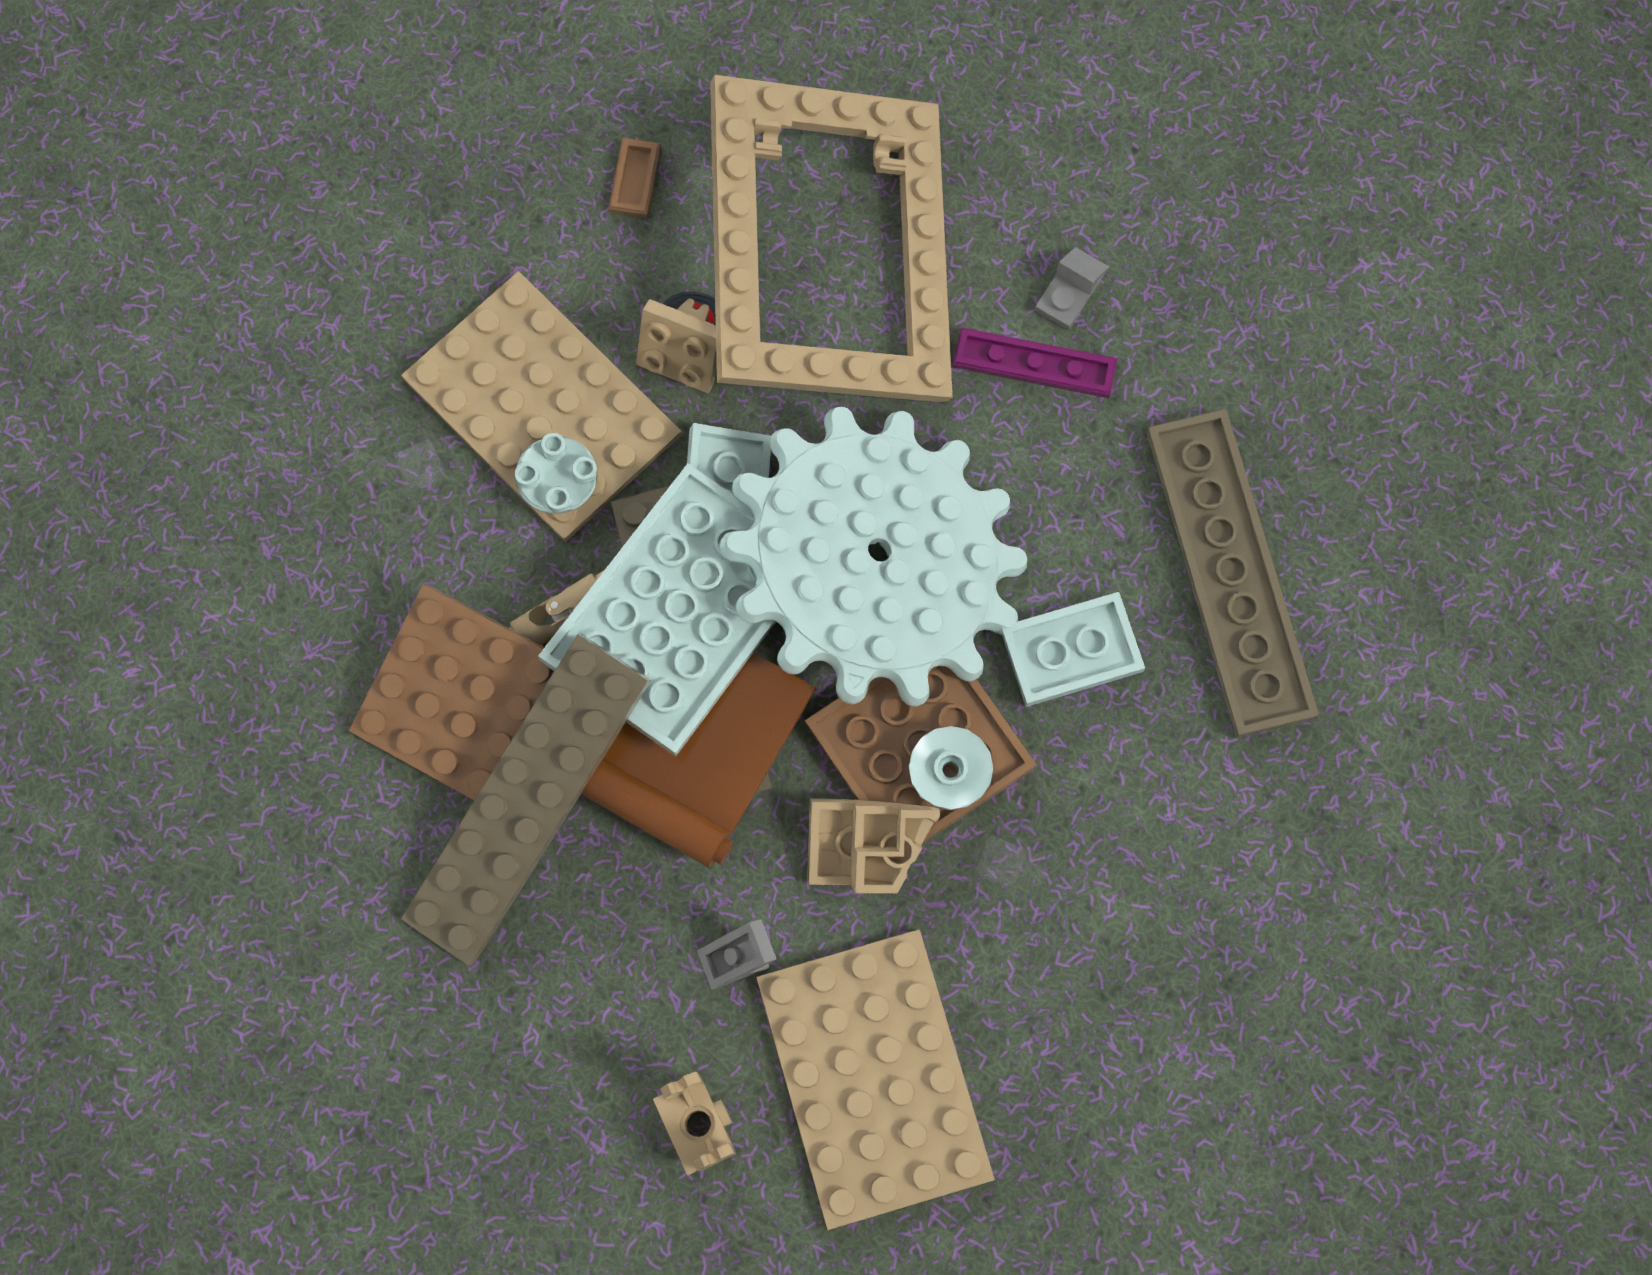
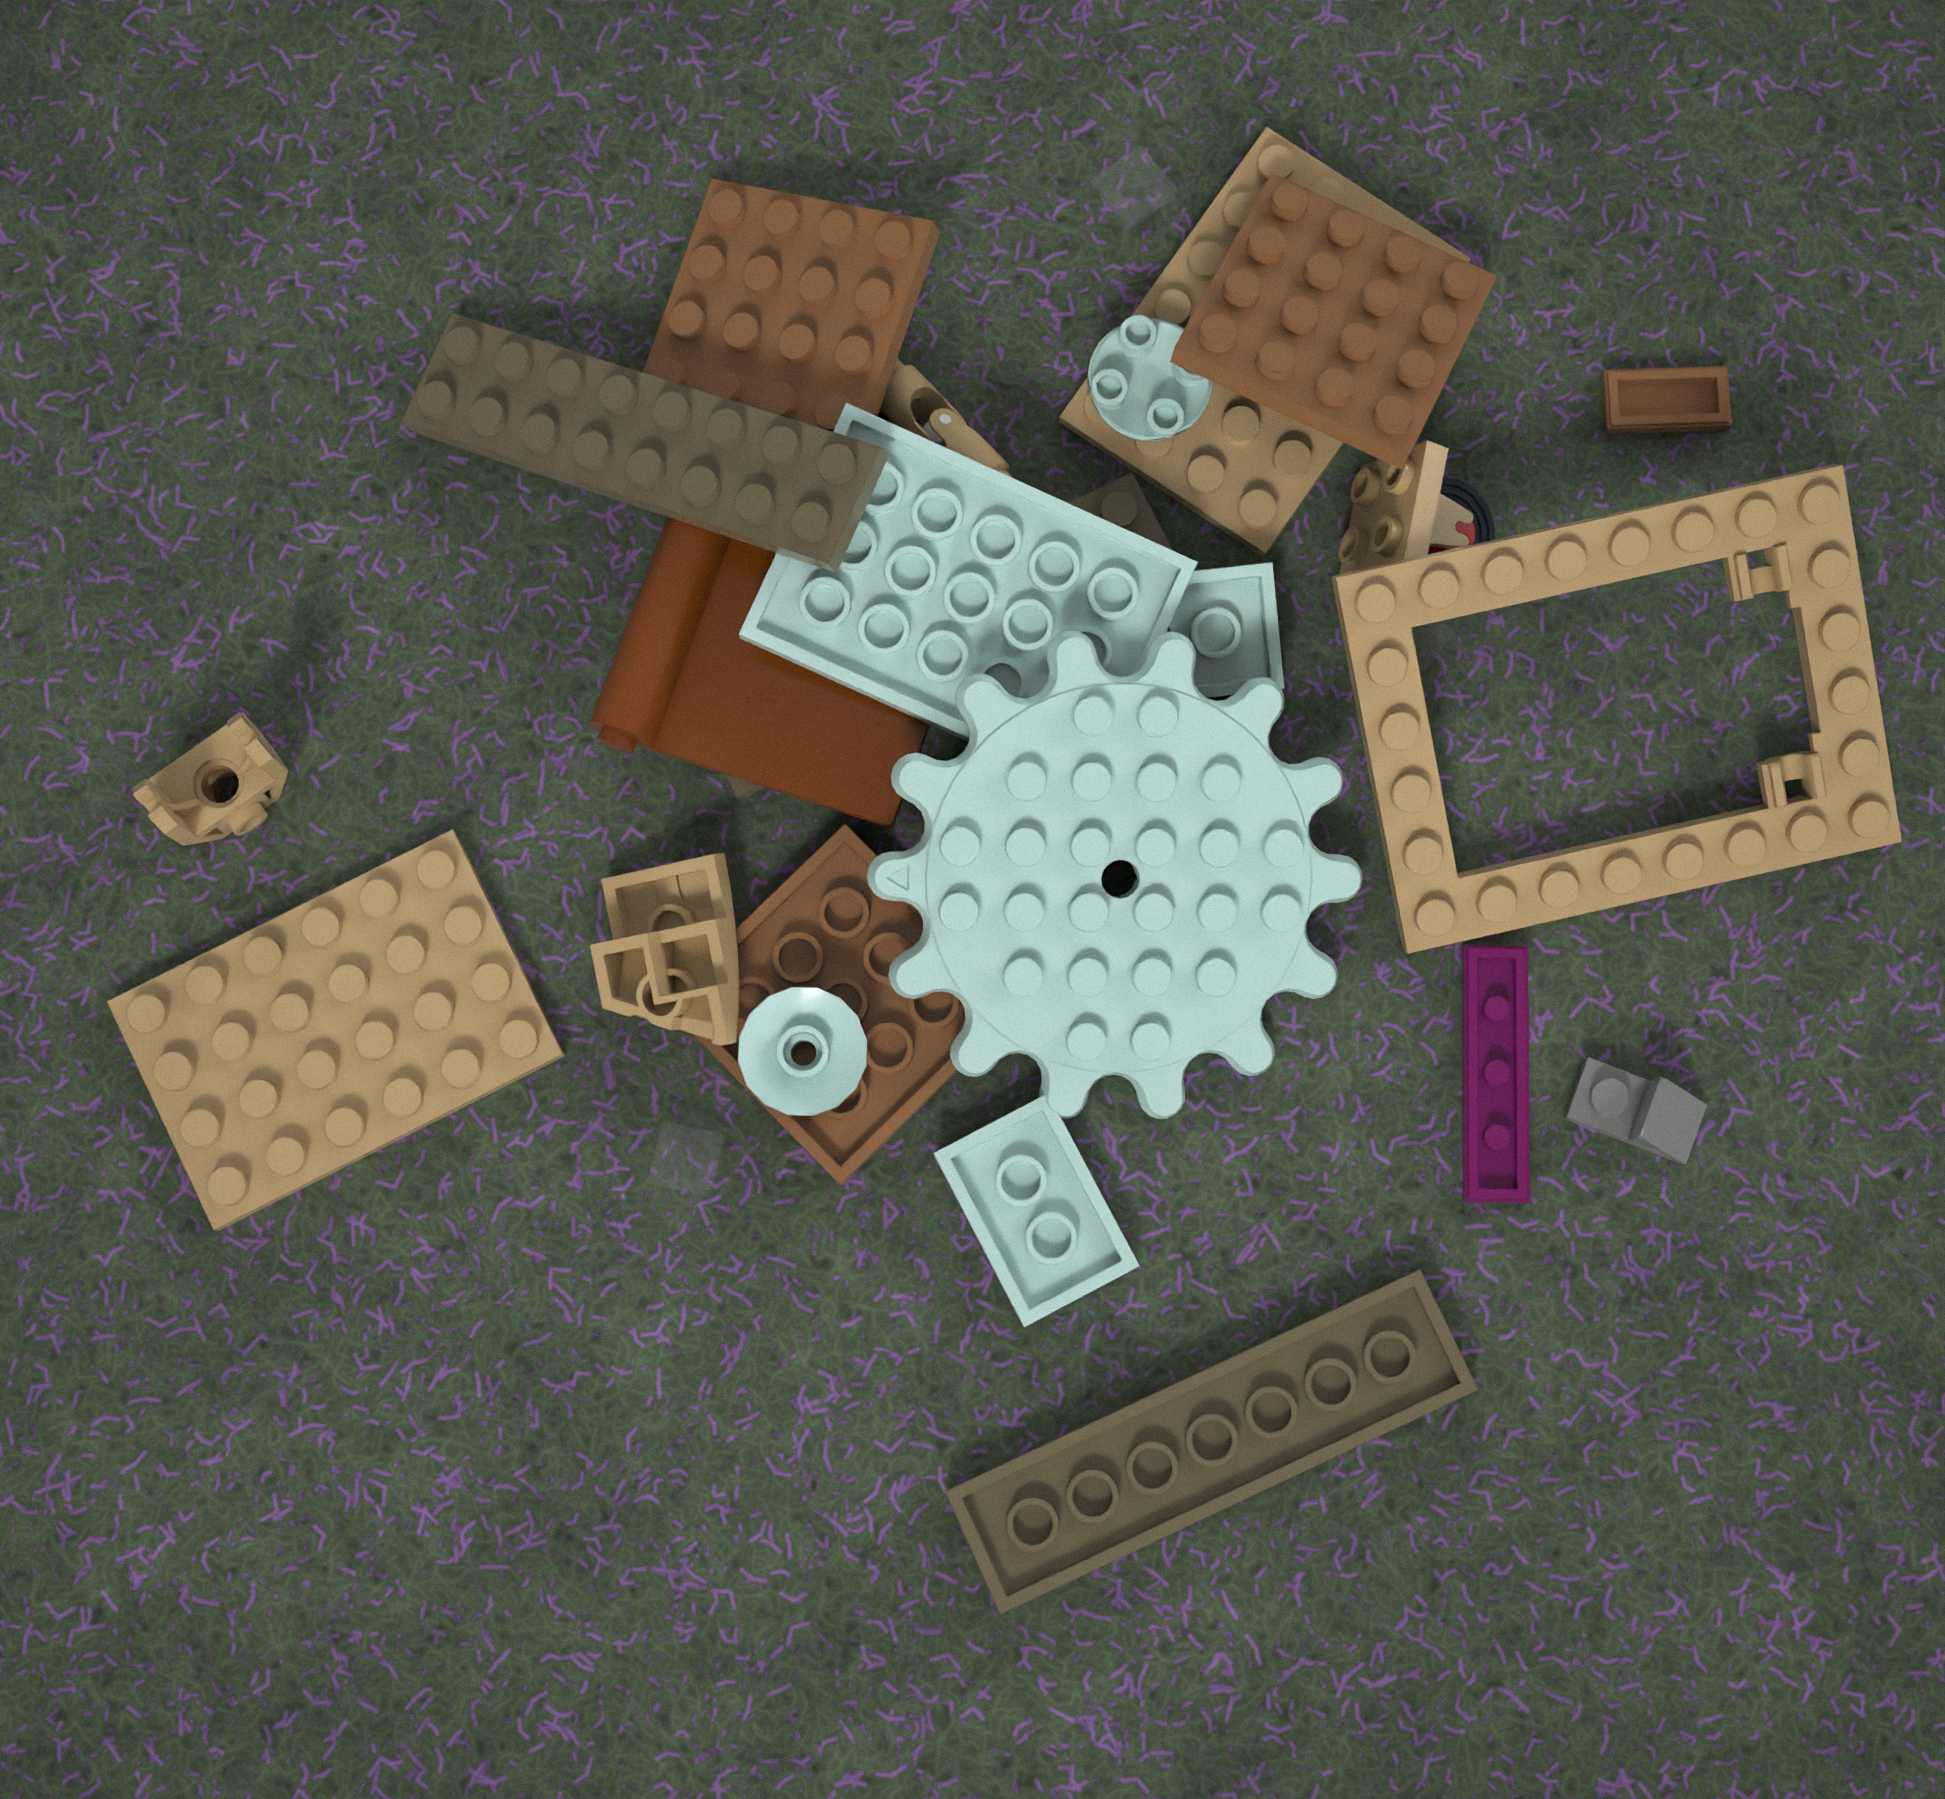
camera: 80 degrees right, 5 degrees up
(547, 352) = (1334, 320): none -> medium nougat plate
(737, 955) = (476, 794): light grey slope -> none

